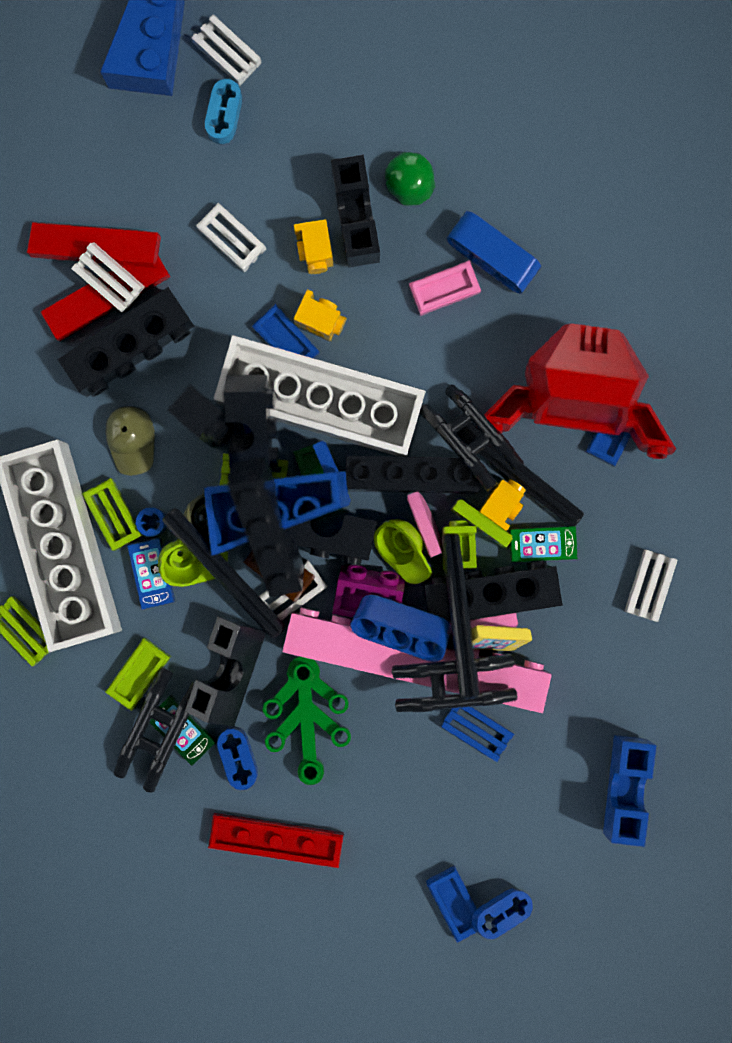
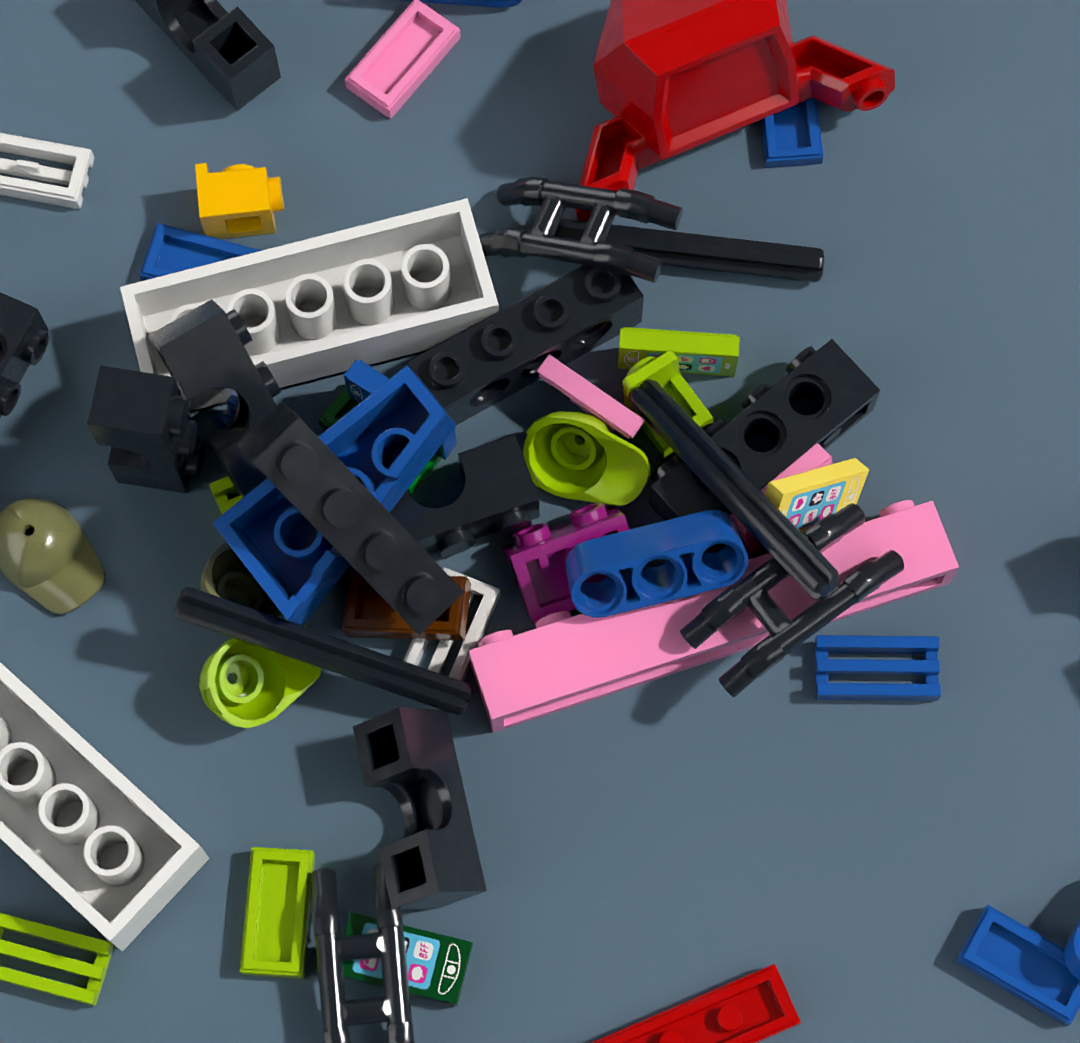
camera: 30 degrees left, 15 degrees down
(125, 538) = (128, 712): lime tile -> none
(149, 583) = (202, 741): tile -> none
(150, 512) = (145, 644): blue bush -> none
(229, 759) = (534, 935): blue beam -> none
(307, 714) = (593, 806): green plant -> none
(315, 245) = (167, 103): yellow brick -> none
(503, 503) = (690, 297): yellow brick -> none
(543, 544) = (788, 328): tile -> none
(662, 590) = (982, 252): white tile -> none

